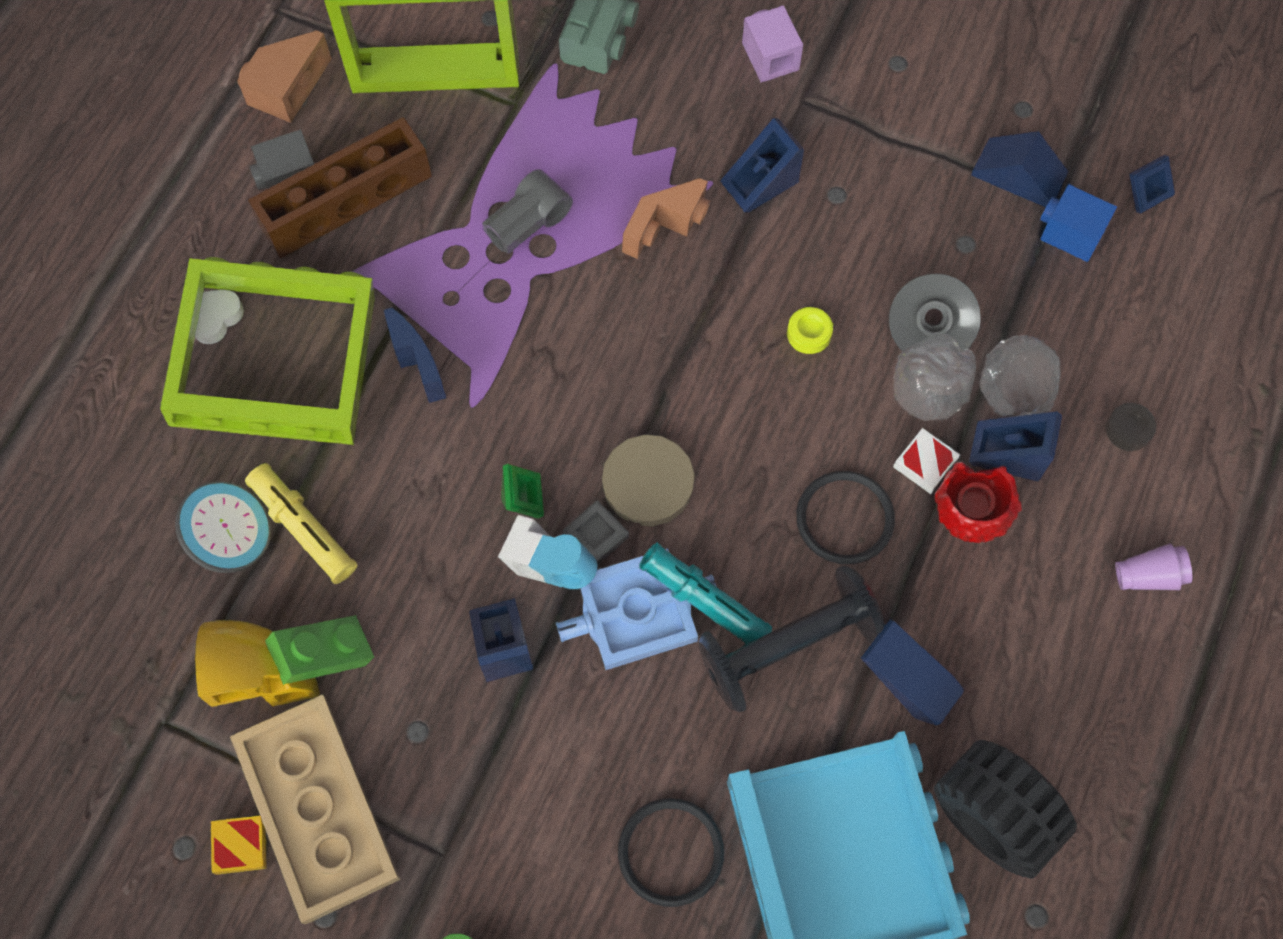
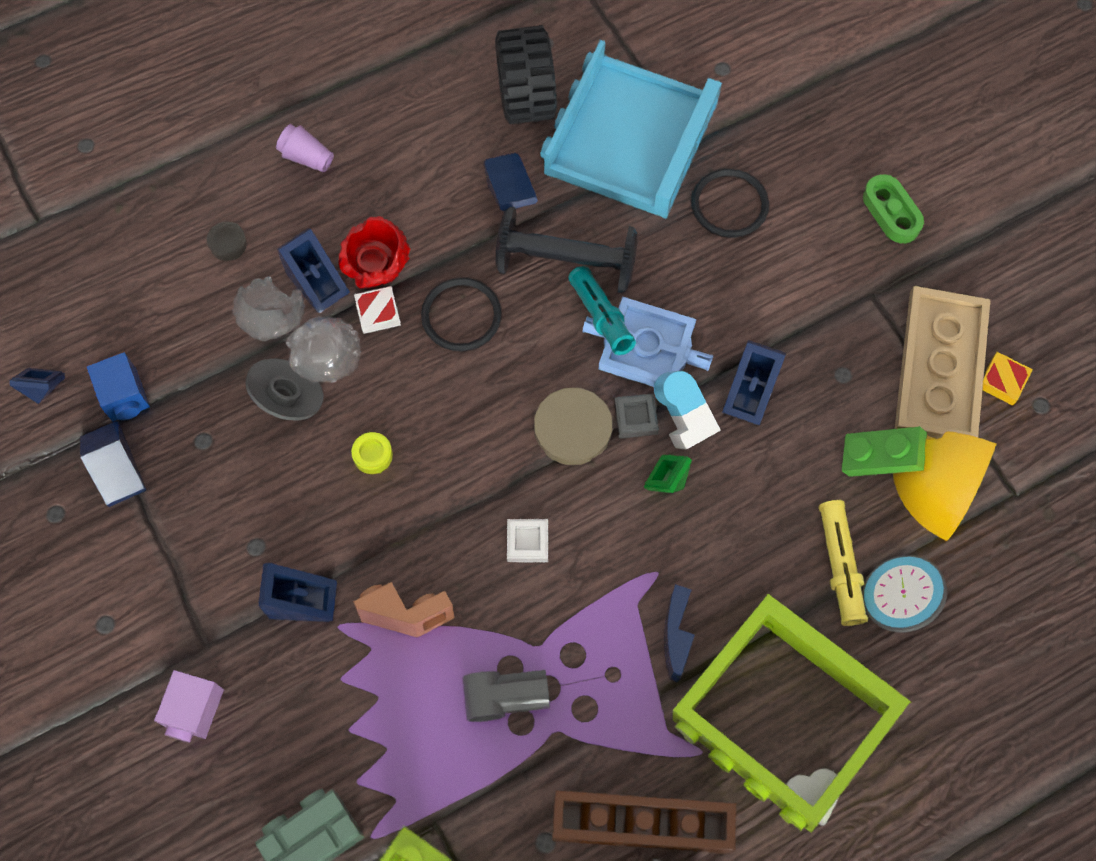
camera: 145 degrees left, 0 degrees up
(608, 351) = (527, 540): none -> white tile

